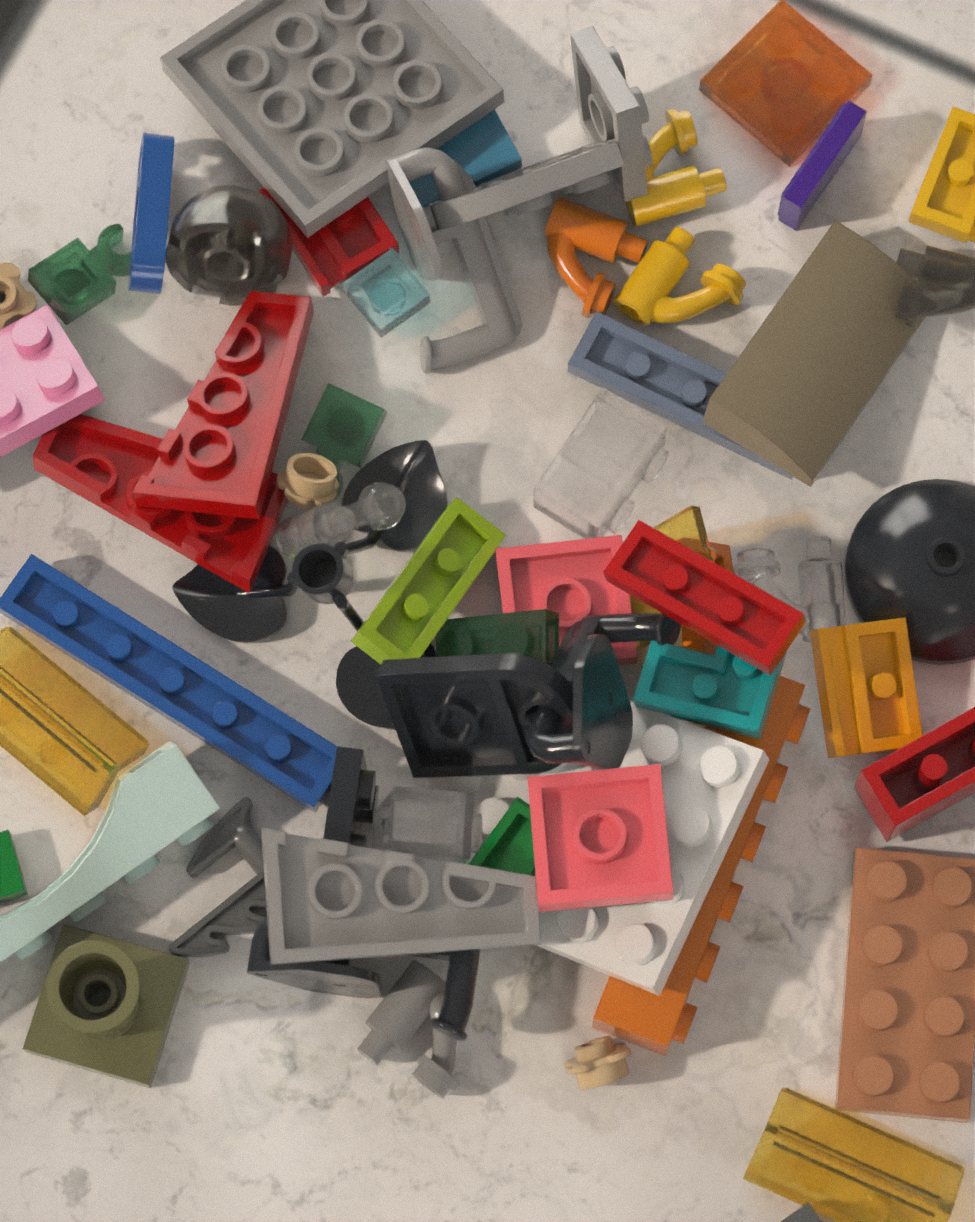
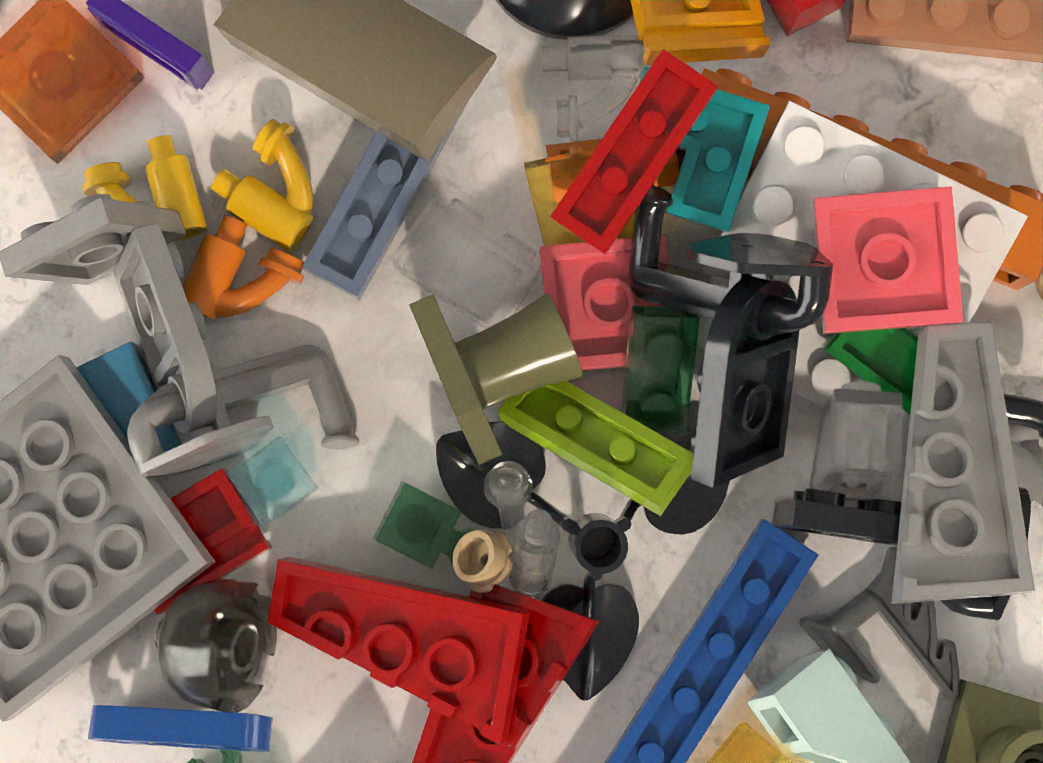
camera: 90 degrees left, 10 degrees up
(488, 460) = (496, 363): none -> olive plant

